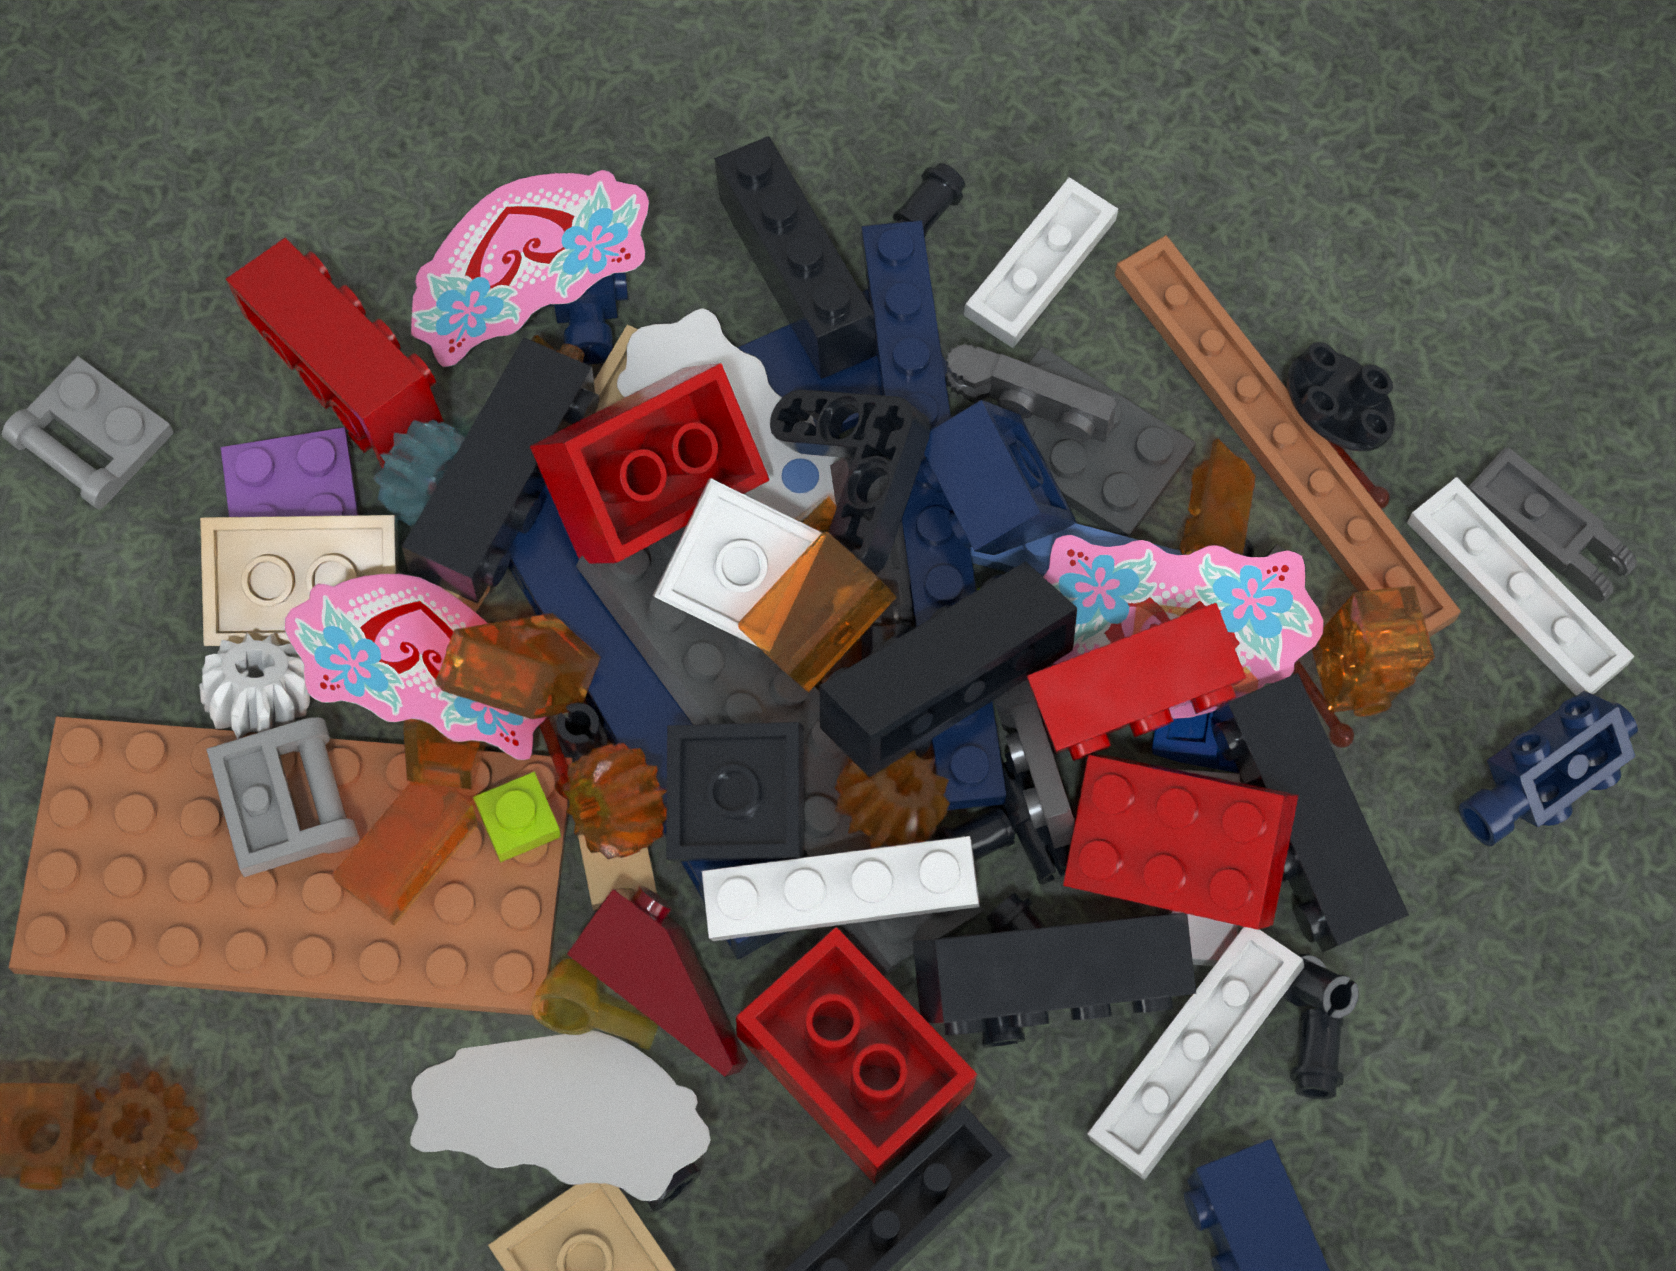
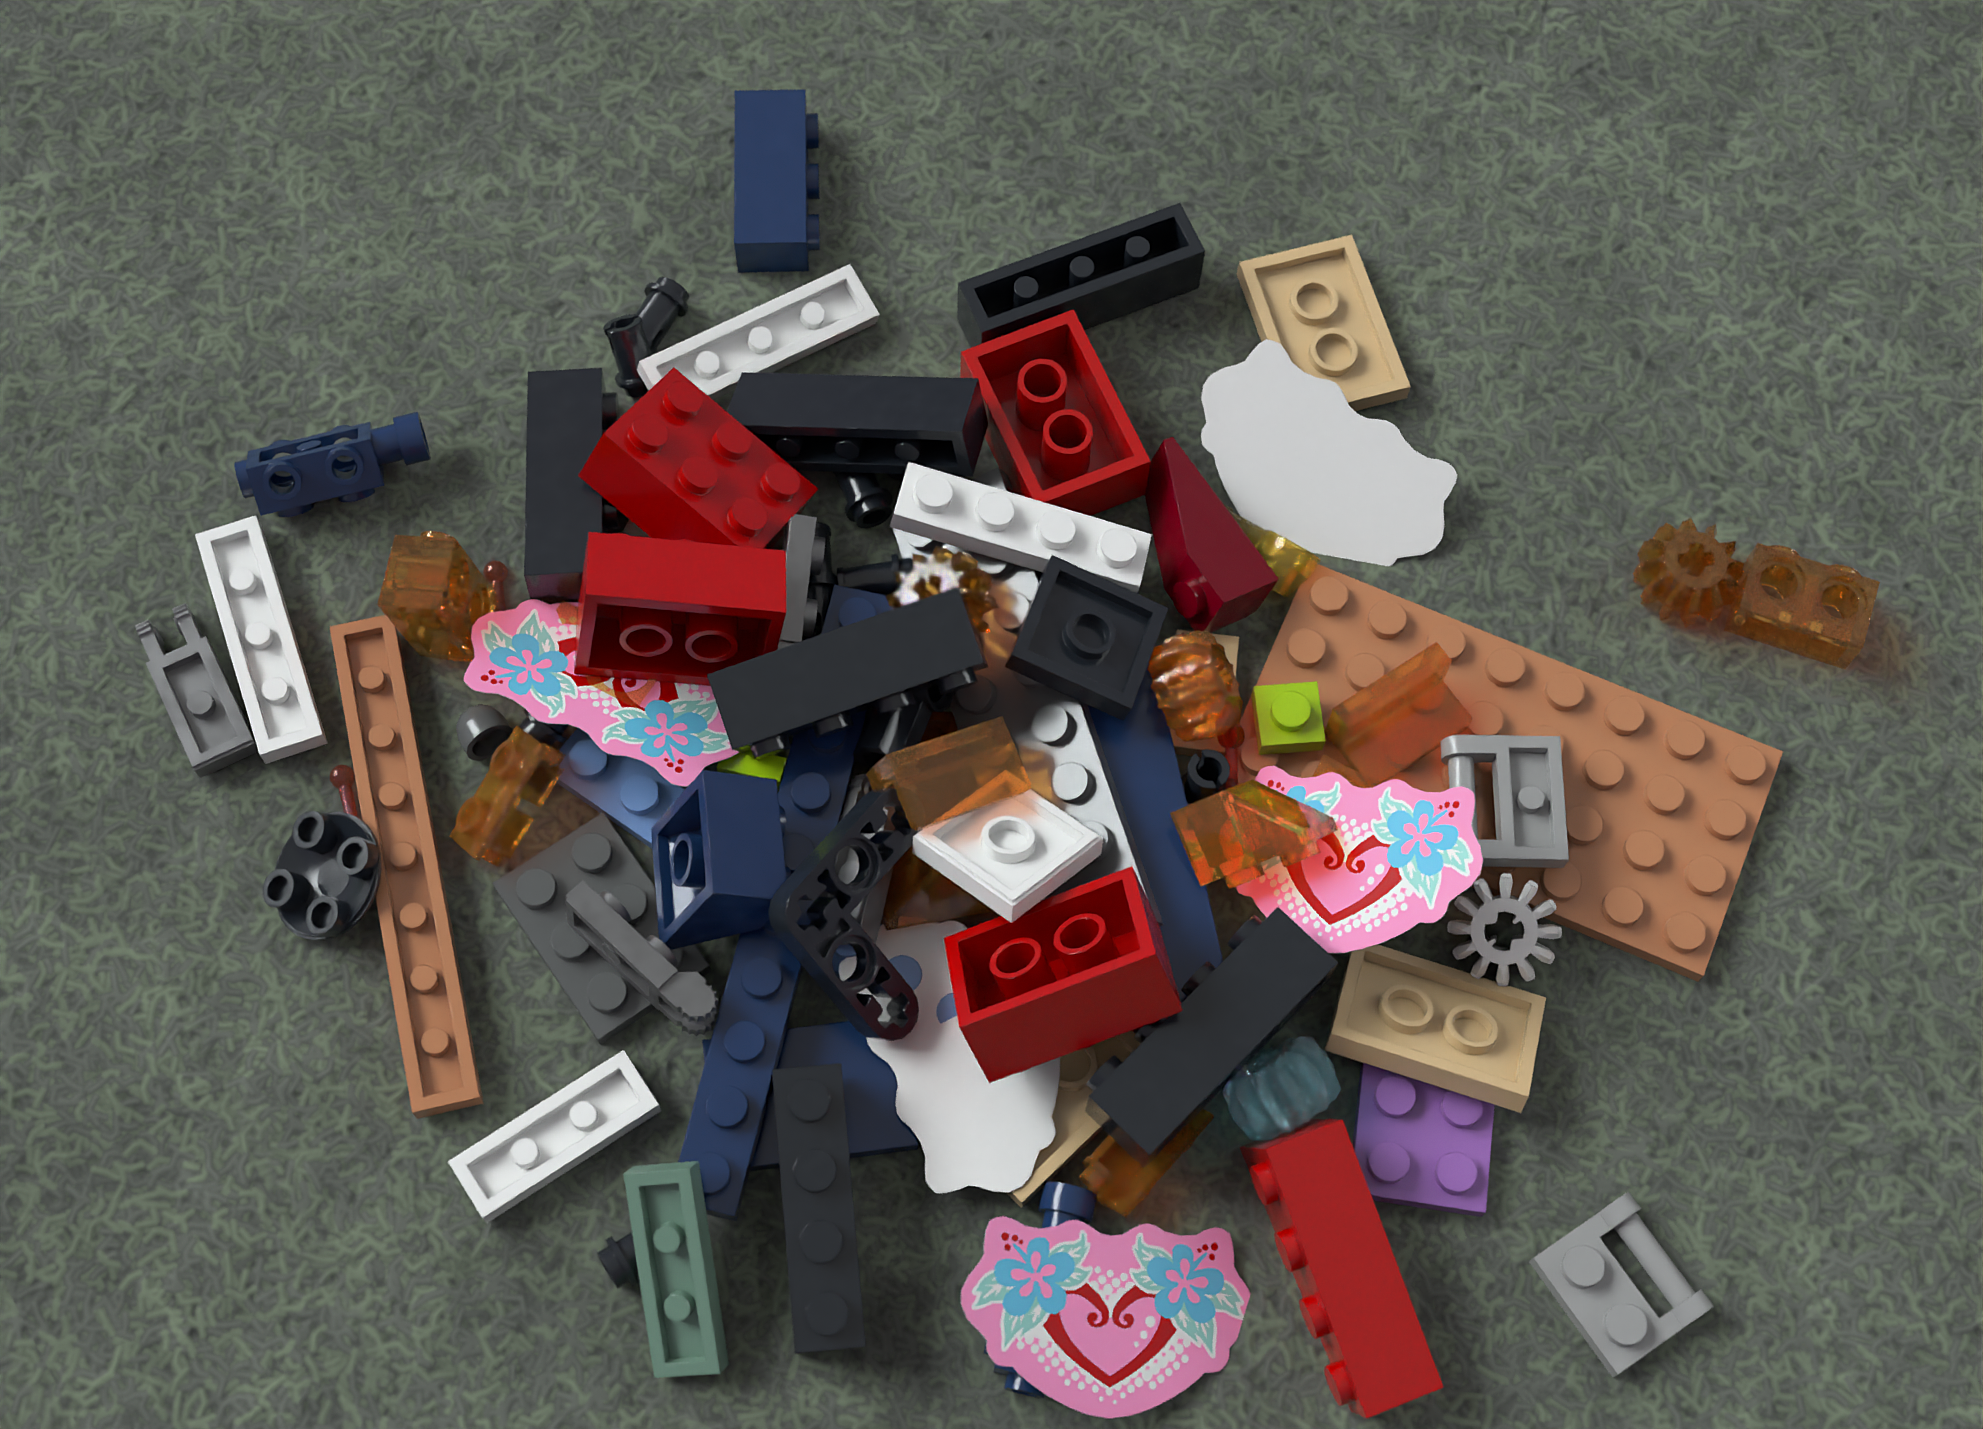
camera: 160 degrees left, 0 degrees up
(893, 175) = (676, 1269): none -> sand green plate

